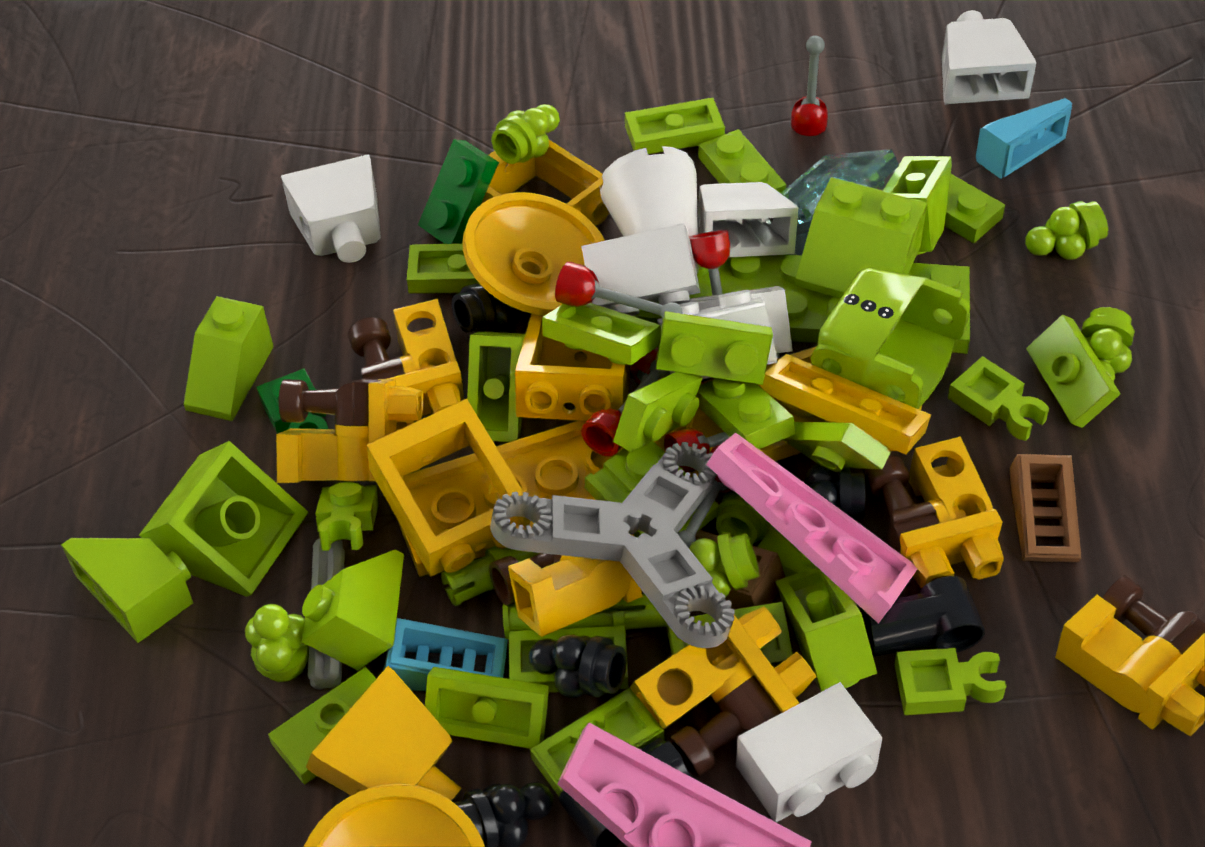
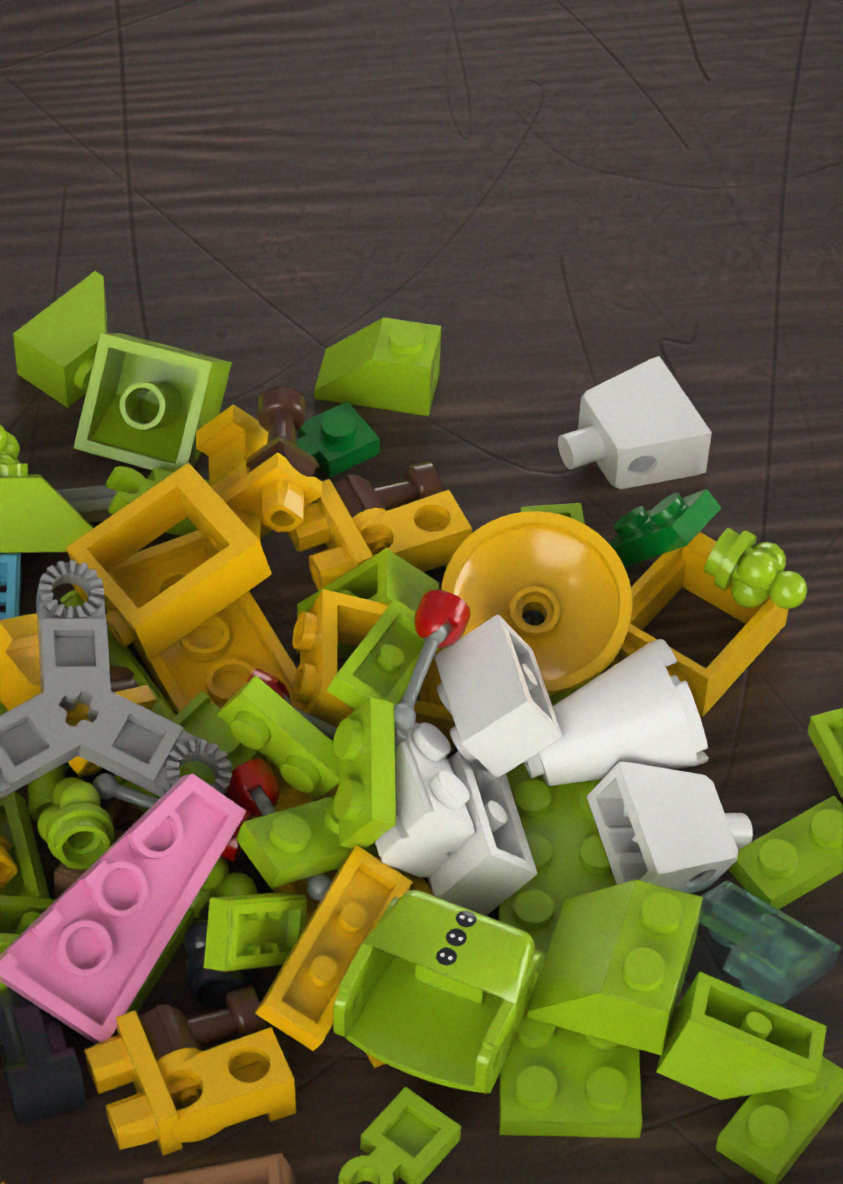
camera: 80 degrees right, 0 degrees up
(711, 252) = (556, 775): red hinge -> none

